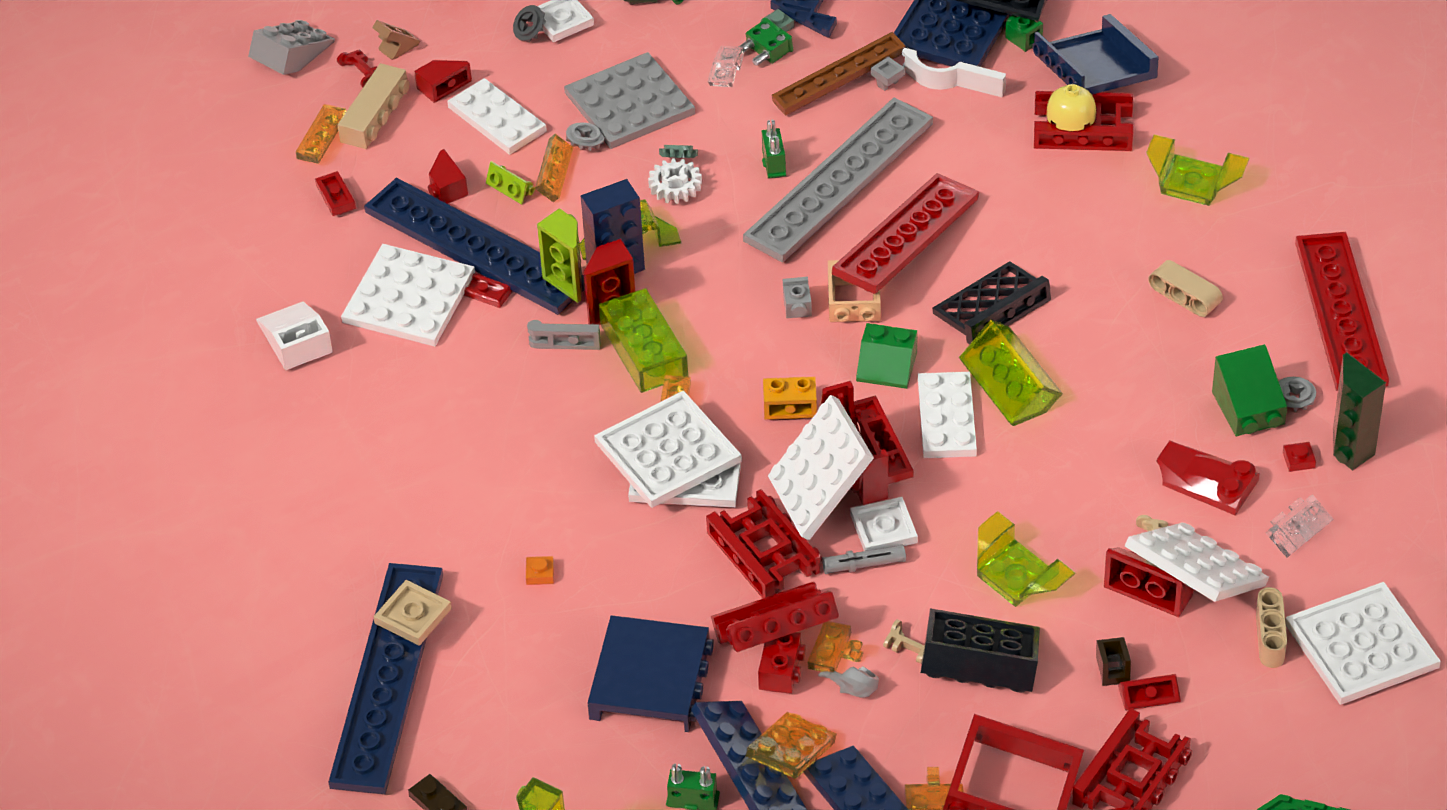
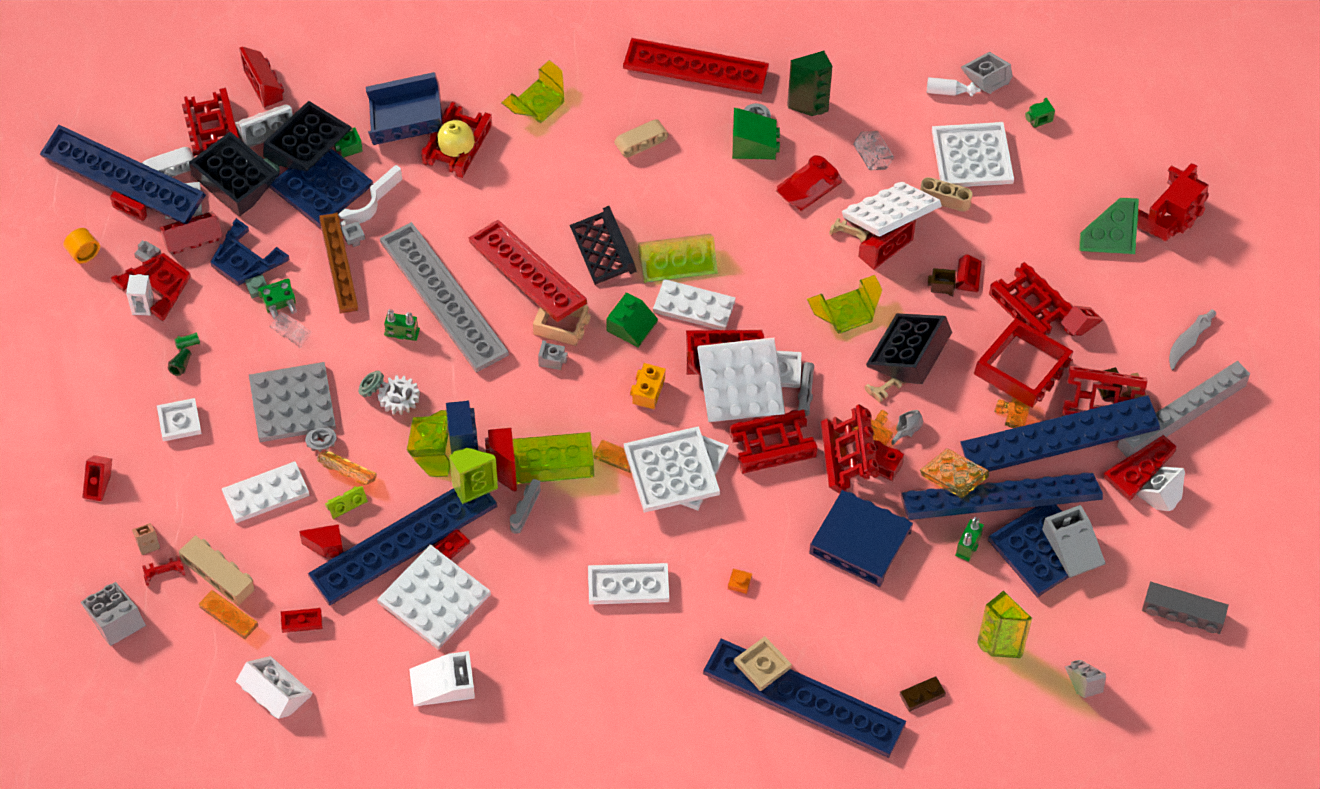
camera: 75 degrees left, 10 degrees up
(240, 196) = (273, 686): none -> white slope
(442, 78) = (207, 517): red slope -> none
(491, 461) = (628, 583): none -> white plate
(531, 14) = (176, 450): dark grey gear -> none
(1299, 456) = (809, 132): red plate -> none

